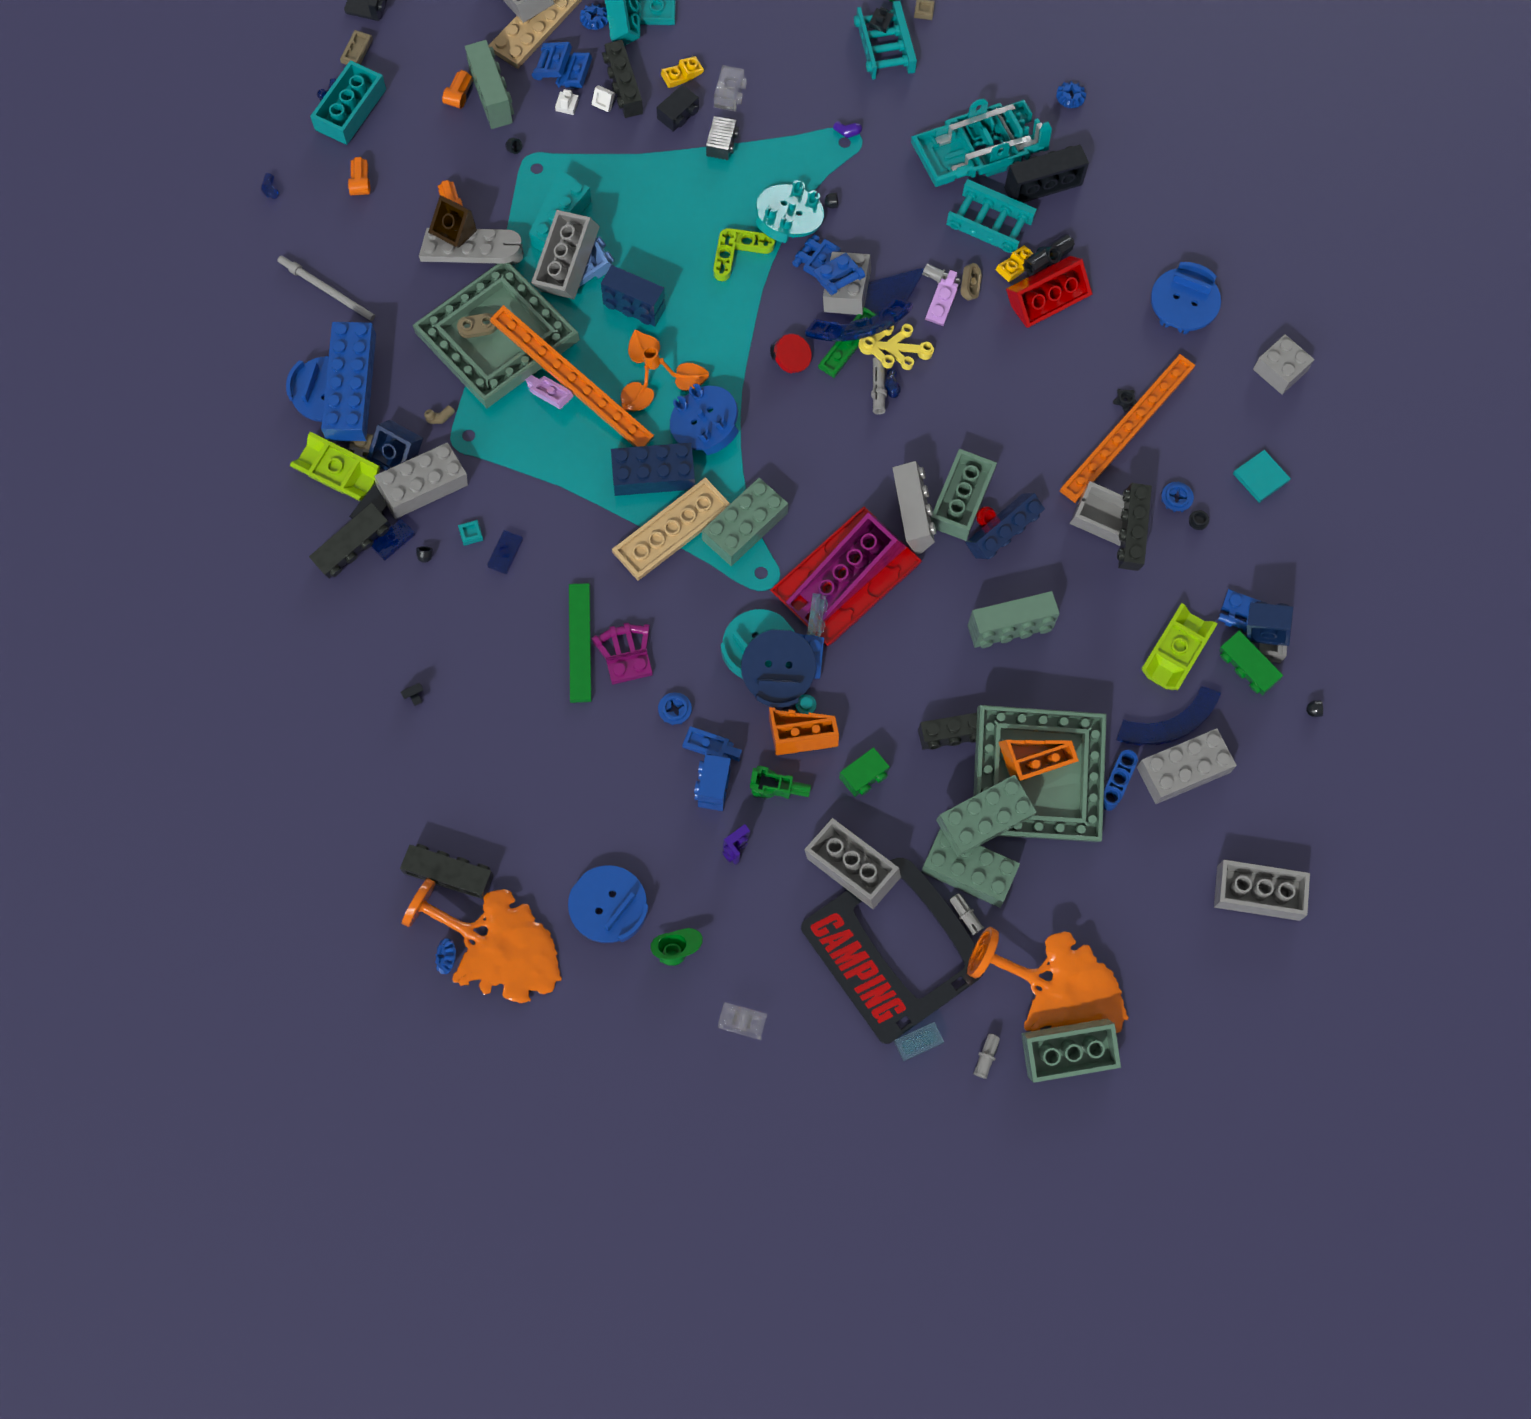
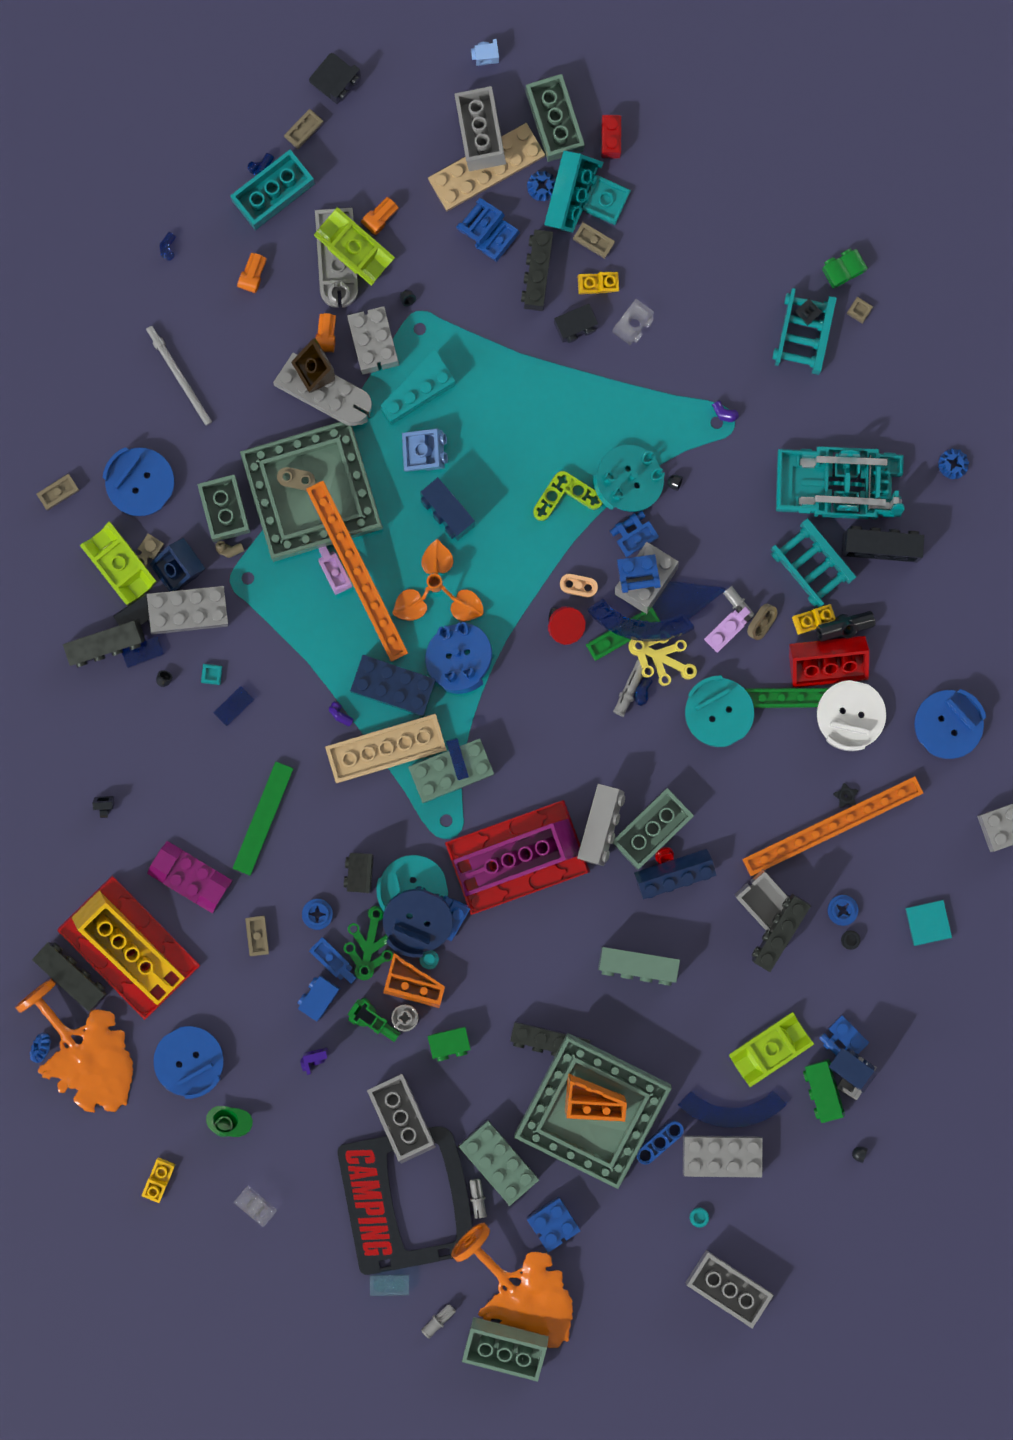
camera: 20 degrees right, 15 degrees up
(248, 429) = (57, 492): none -> dark tan plate
(348, 381) = (161, 488): blue brick -> none
(418, 378) = (224, 508): none -> sand green brick
(432, 136) = (333, 273): none -> light grey plate
(445, 117) = (353, 246): none -> lime piece
(489, 84) = (409, 223): sand green brick -> none
(496, 820) = (128, 947): none -> piece
(497, 187) = (373, 340): none -> light grey piece
(529, 727) = (189, 876): none -> magenta piece
(565, 254) = (403, 443): light grey brick -> none
(567, 102) = (476, 271): white tile -> none
(603, 98) = (511, 283): white tile -> none
(609, 517) = (339, 716): none -> dark purple arm
(623, 753) = (257, 936): none -> dark tan plate
(627, 665) = (297, 857): magenta plate -> none
(628, 1041) = (158, 1180): none -> yellow slope
(661, 39) = (593, 240): none -> dark tan plate
(700, 649) = (359, 872): none -> pearl dark grey slope
(721, 138) = (602, 373): brick -> none
(739, 717) = (368, 946): none -> green plant
(746, 502) = (457, 759): none -> clear blue piece
(786, 317) = (579, 583): none -> light nougat plate
(808, 769) = (405, 1017): none -> light grey wheel
(816, 622) = (468, 894): clear light blue plate -> none
(959, 361) = (710, 699): none -> teal piece
(986, 815) = (526, 1132): sand green brick -> none
(1021, 340) = (786, 697): none -> green tile
(1056, 901) = (553, 1224): none -> blue piece
(1097, 339) = (847, 729): none -> white piece
(1193, 837) = (699, 1217): none -> teal tile

